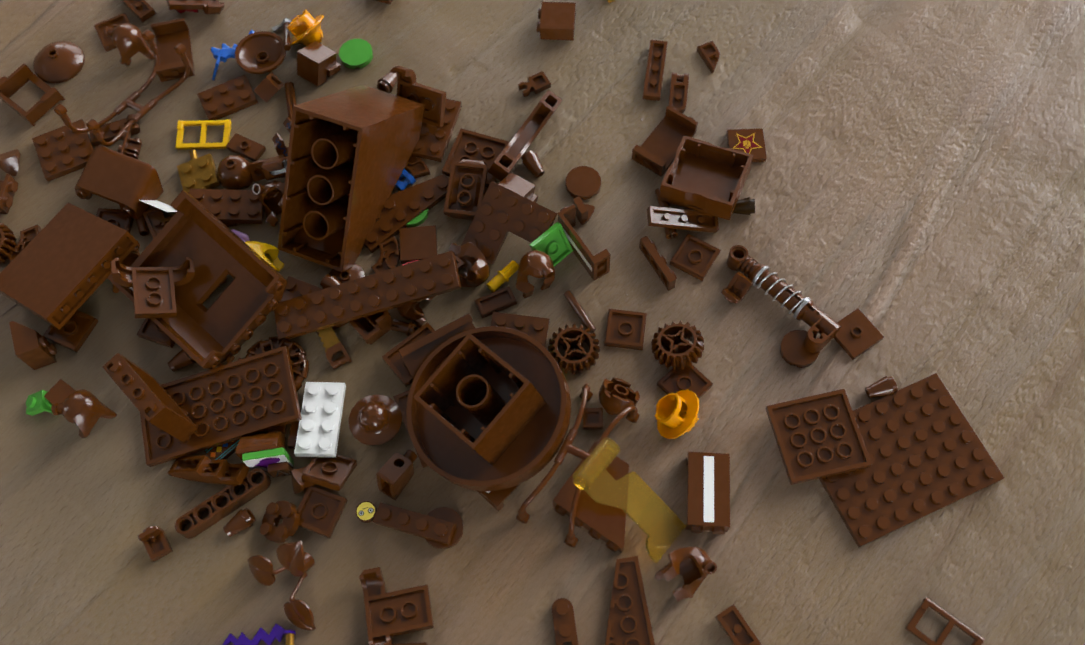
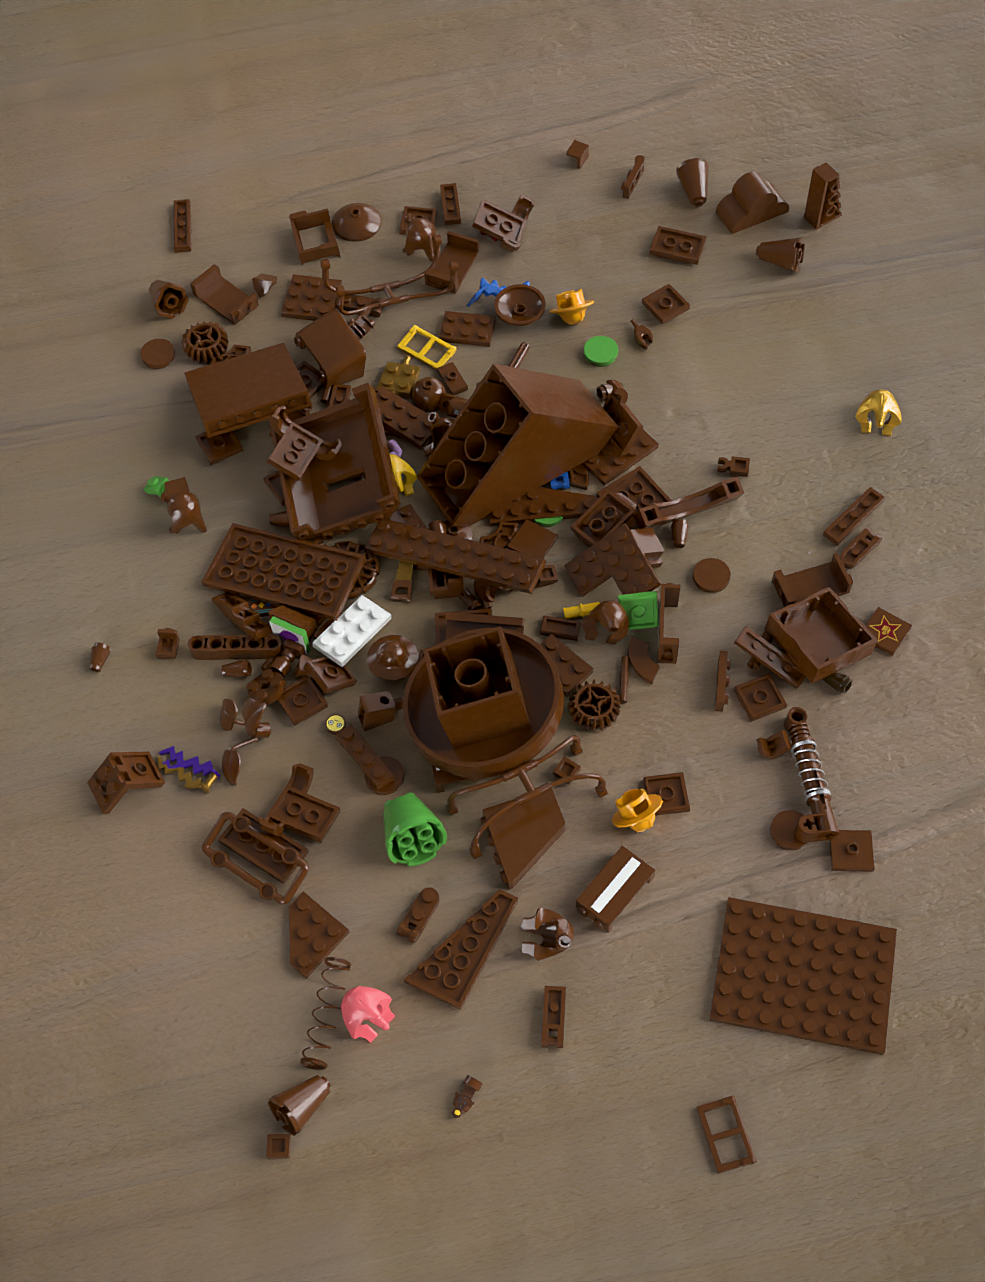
camera: 35 degrees right, 5 degrees down
(32, 347) = (181, 440): reddish brown slope -> none
(95, 598) = (99, 654): none -> reddish brown cone
(149, 395) = (240, 546): reddish brown window -> none
(159, 205) = (348, 383): white sticker -> none
(269, 87) = (506, 338): reddish brown panel -> none
(277, 491) = (282, 663): none -> reddish brown piece
(287, 41) = (553, 301): reddish brown piece -> none
(316, 62) = (560, 340): reddish brown plate -> none
(378, 21) = (641, 333): none -> reddish brown hand
(476, 266) = (564, 590): reddish brown piece -> none
(506, 561) = (411, 831): none -> bright green cone
(557, 21) = (797, 421): reddish brown brick -> none
(581, 287) = (640, 660): none -> reddish brown tile
(583, 211) = (692, 599): reddish brown tile -> none
(617, 396) = (599, 762): reddish brown cylinder -> none
(625, 329) = (651, 718): reddish brown tile -> none
(631, 496) = (546, 846): clear yellow door -> none
(681, 351) = (684, 752): reddish brown gear -> none
(709, 54) = (917, 532): reddish brown tile -> none
(818, 436) = (742, 906): reddish brown plate -> none
(882, 387) = (837, 908): reddish brown cone -> none

